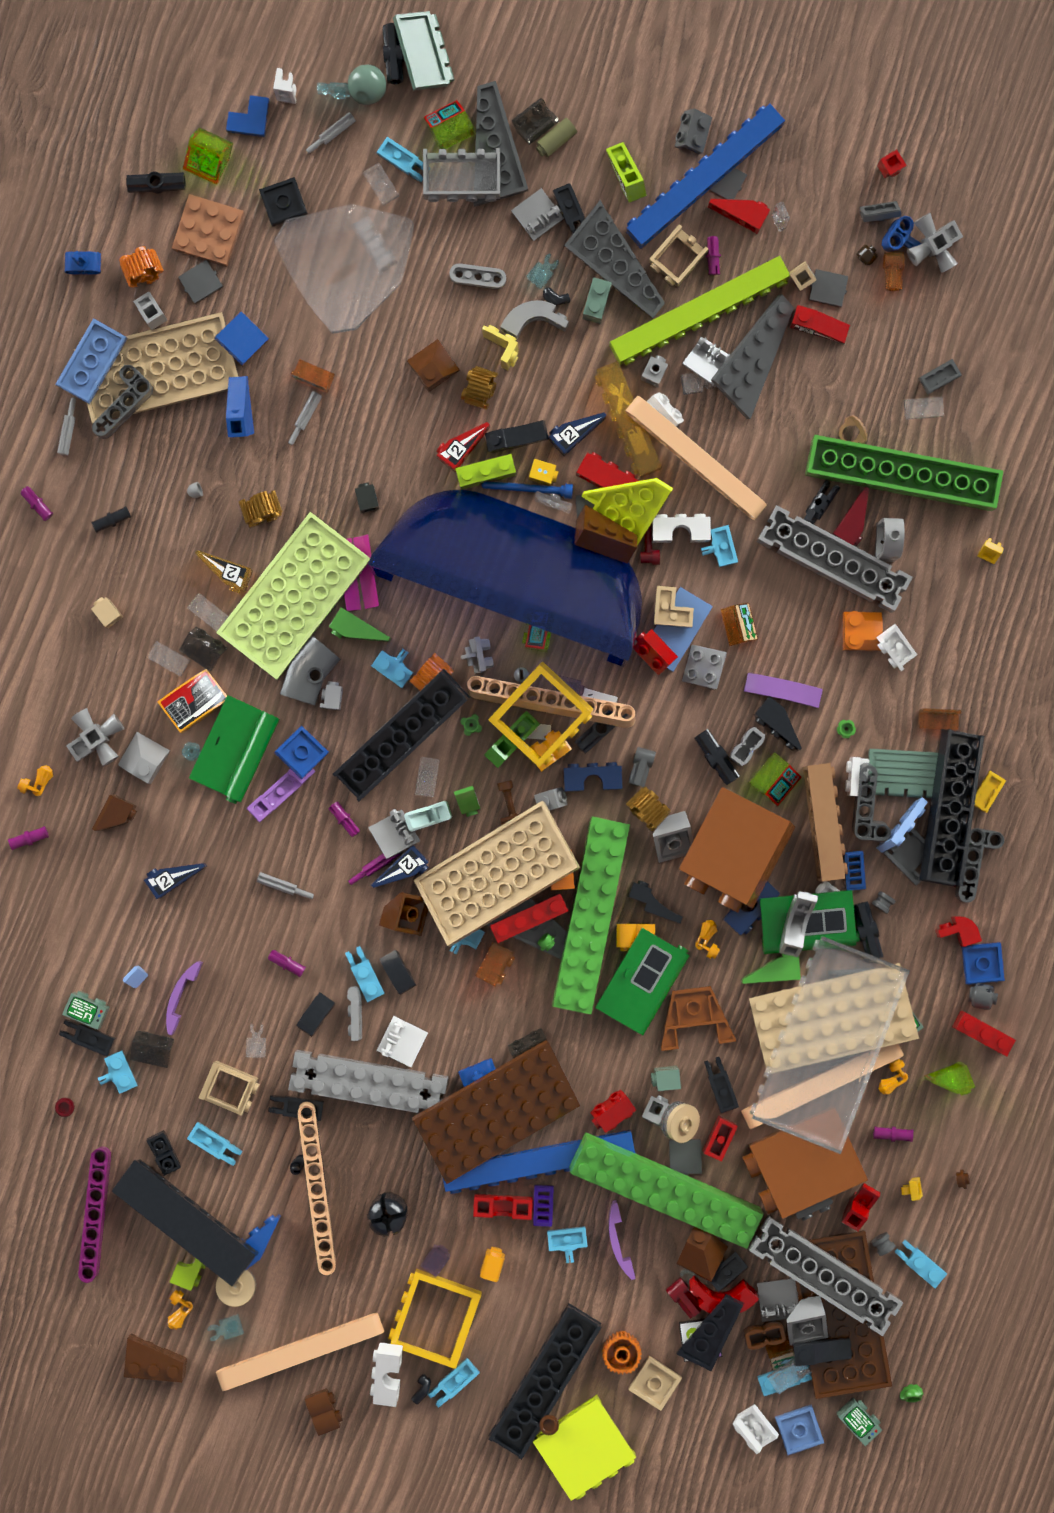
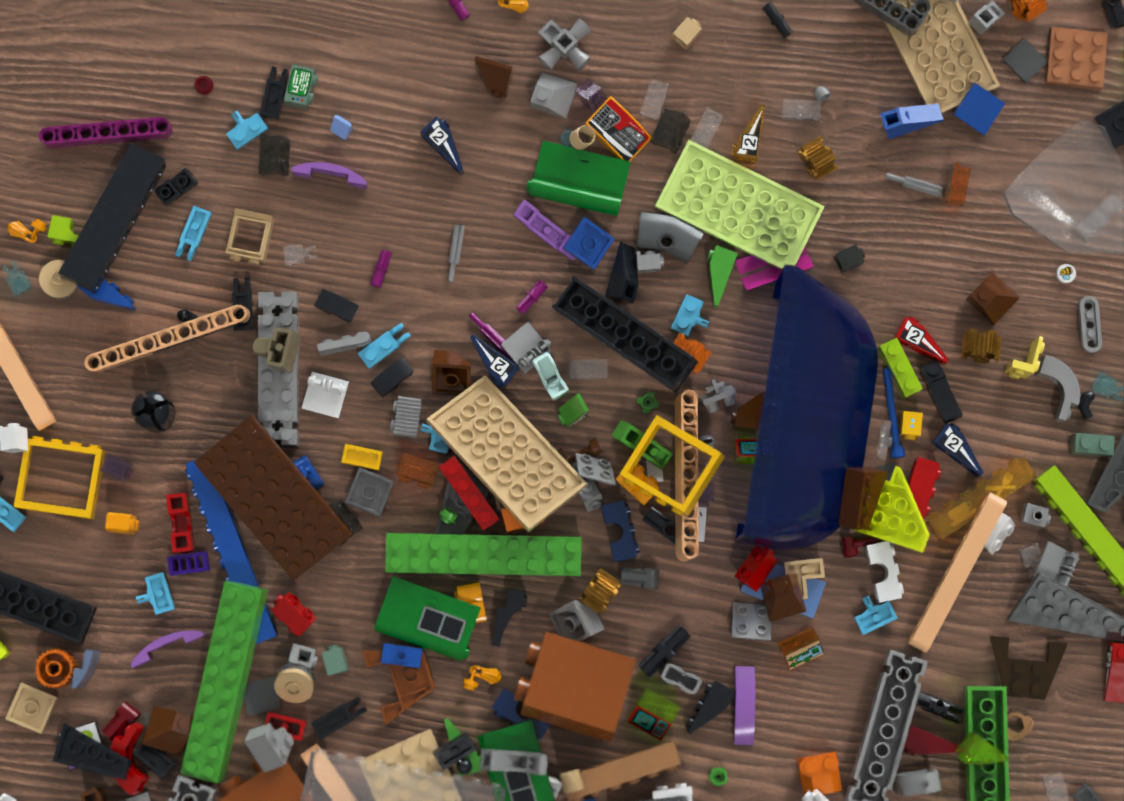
camera: 80 degrees right, 5 degrees down
(152, 720) = (591, 95): none -> brick
(192, 730) = (589, 134): none -> tan piece
(207, 514) = (801, 109): none -> clear plate
(343, 724) = (624, 277): none -> black slope
(352, 1079) = (279, 349): none -> dark tan brick
(422, 288) = (1065, 273): none -> white tile
(440, 964) = (407, 417): none -> light grey brick
(471, 1016) = (362, 457): none -> yellow plate
(503, 628) = (748, 415): none -> reddish brown slope
(507, 1015) = (369, 492): none -> flat silver plate
(528, 790) = (594, 468): none -> light grey hinge
(632, 1327) = (83, 675): none -> sand blue slope
(673, 1013) = (401, 655): none -> blue plate
(688, 631) = (783, 597): none -> reddish brown slope
(739, 1157) = (269, 746): none -> light grey brick
(777, 978) = (454, 752): none -> black plate
(807, 413) = (1027, 677): none -> dark brown wing
(828, 871) = (571, 781): none -> tan piece
(874, 475) = (978, 751): none -> clear neon green slope

